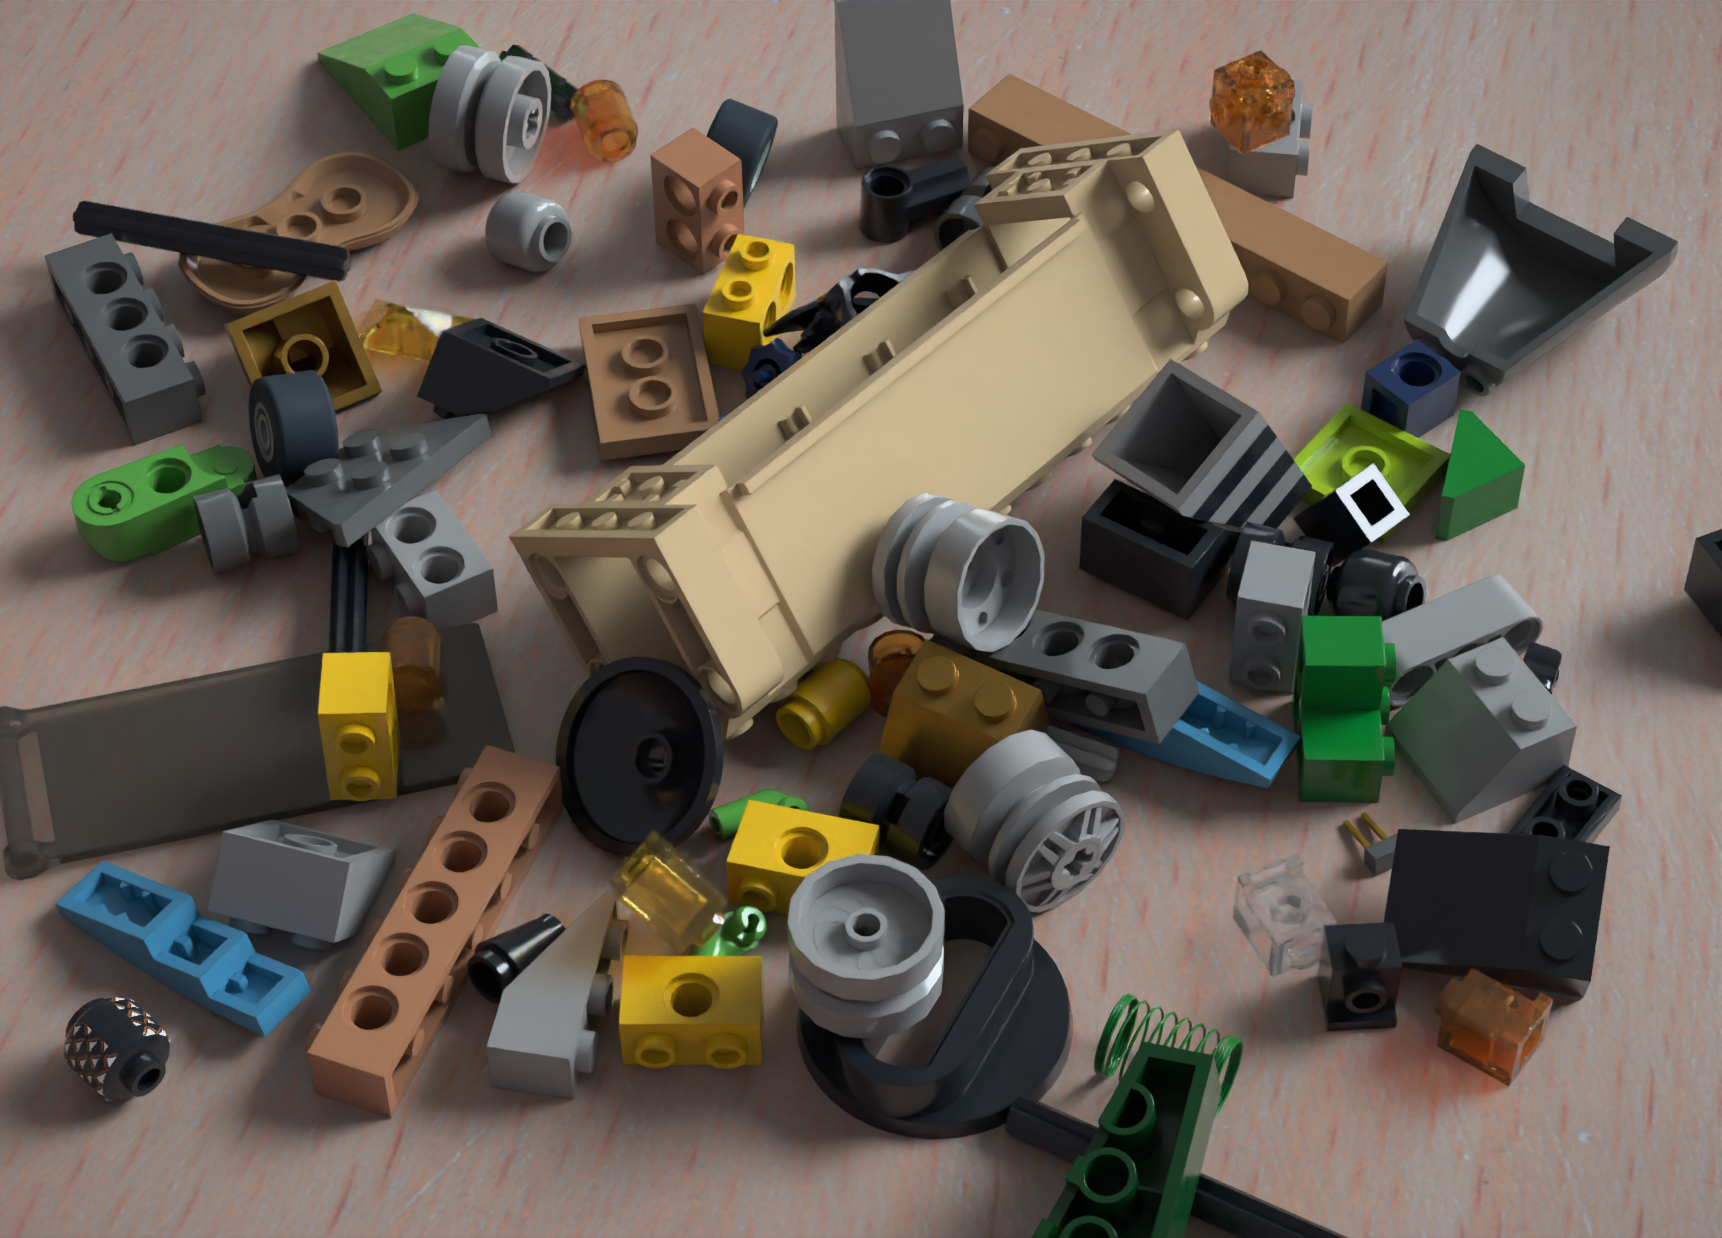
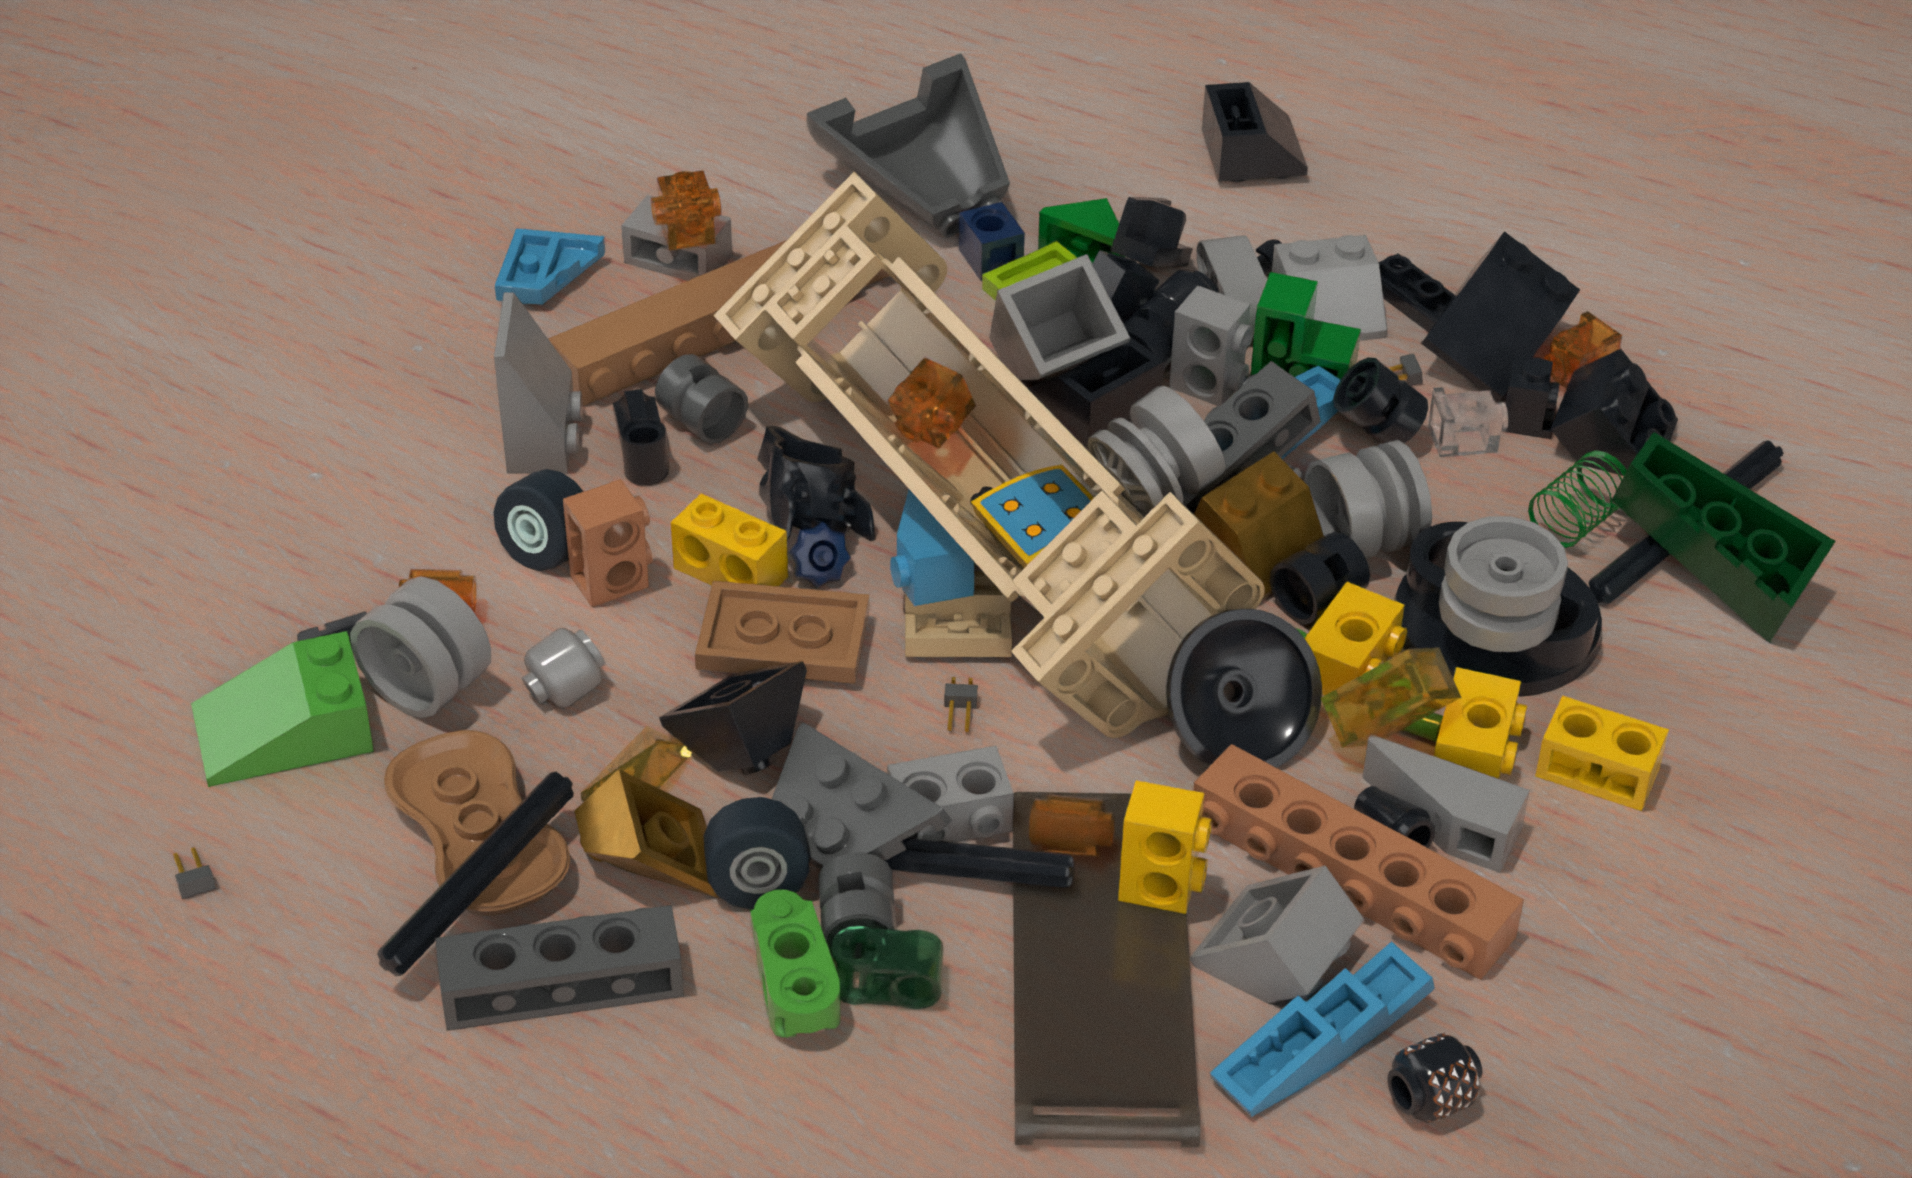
camera: 75 degrees left, 5 degrees down
(179, 569) = (893, 967): none -> clear green piece
(191, 87) = (195, 880): none -> dark grey piece
(688, 1144) = (1601, 753): none -> yellow brick
(1167, 49) = (545, 263): none -> dark azure wing
(1244, 806) = (1380, 402): none -> black wheel
(1362, 1084) = (1611, 411): none -> black slope
(1473, 519) = (1152, 233): none -> black panel

